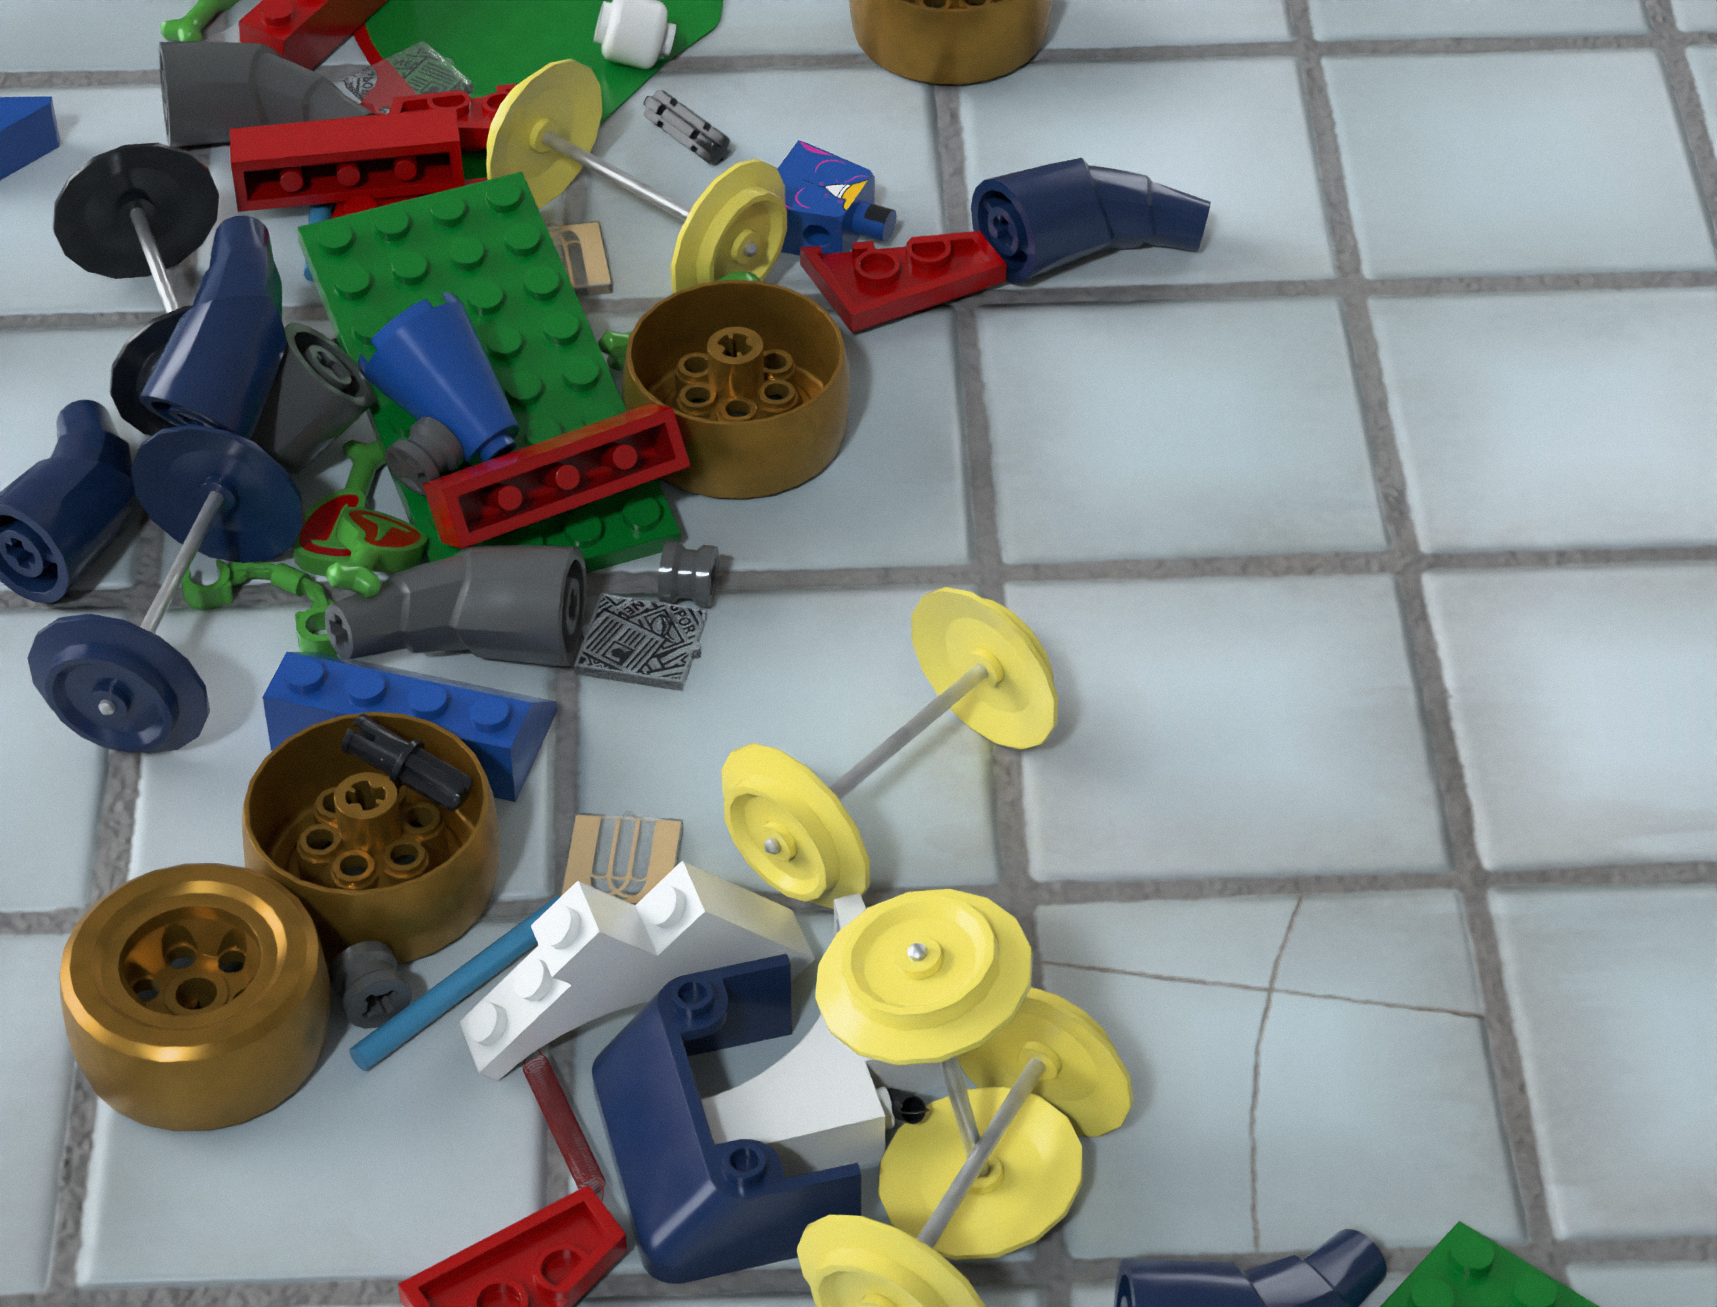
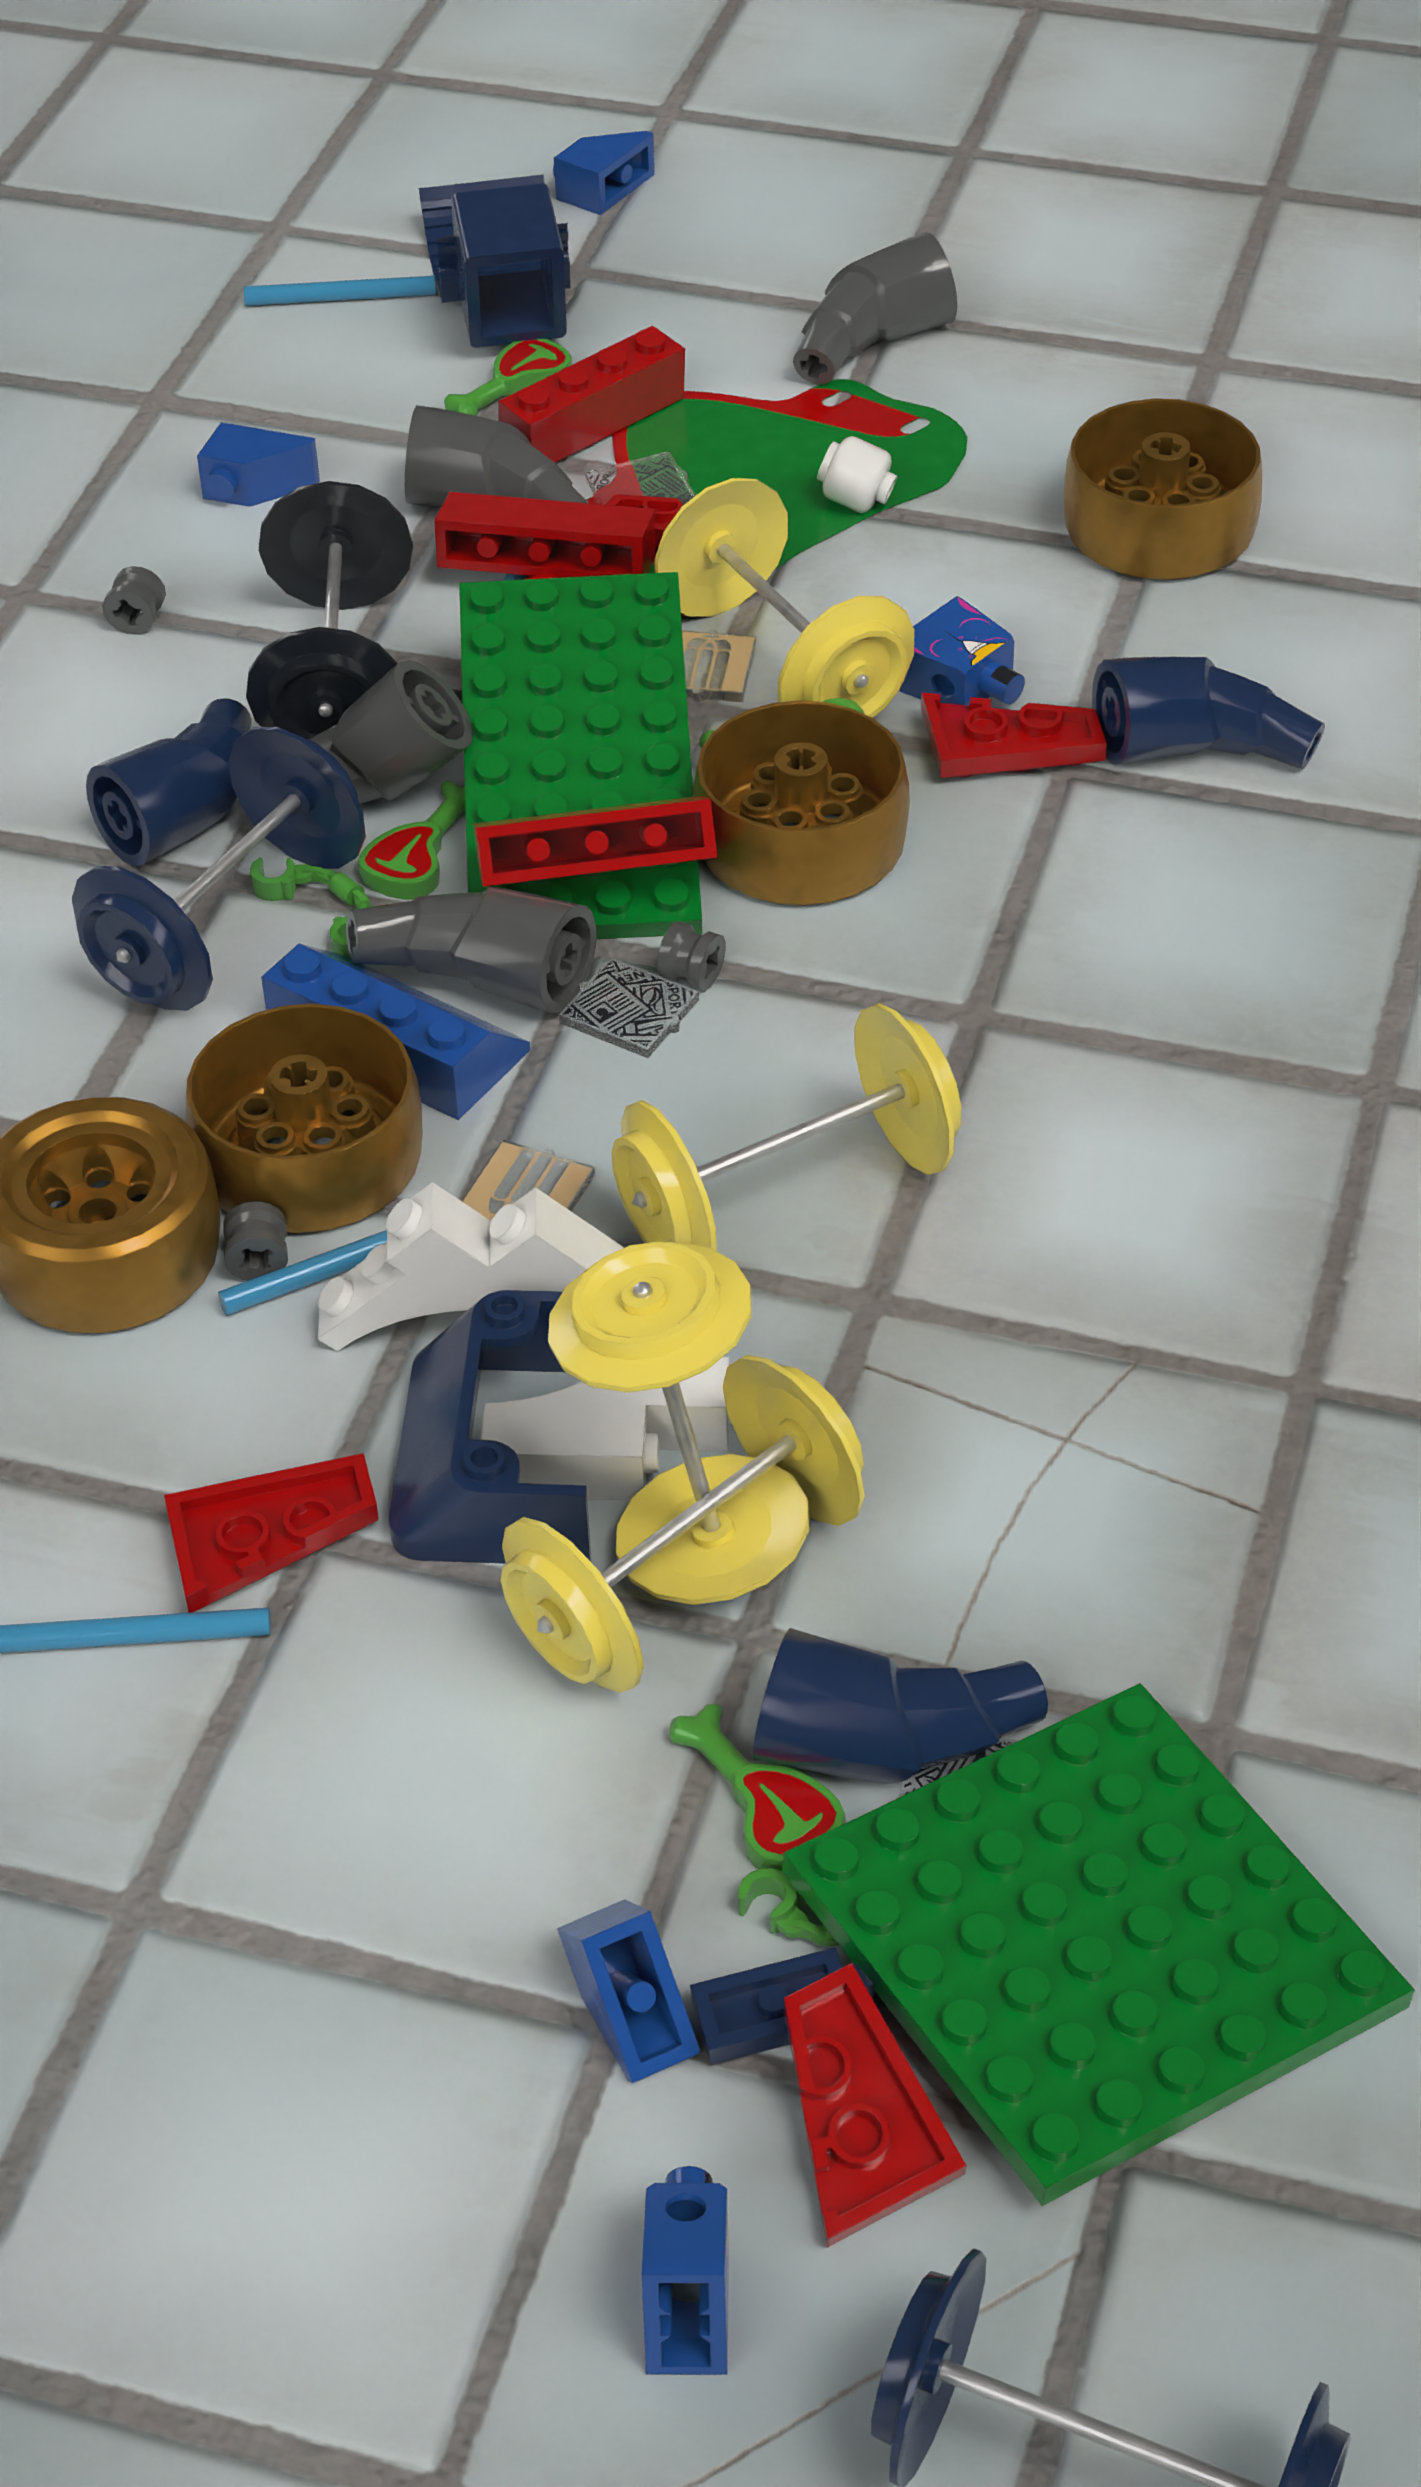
camera: 20 degrees right, 0 degrees up
(229, 341) = (342, 662): dark blue piece -> none
(376, 544) = (418, 869): bright green piece -> none
(407, 763) = (349, 1056): black axle -> none
(424, 454) = (488, 798): dark grey wheel -> none
(439, 370) = (523, 732): blue cone -> none
(572, 1116) = (382, 1400): red piece -> none
(686, 127) = (870, 567): axle -> none
(913, 1107) = (669, 1466): black piece -> none

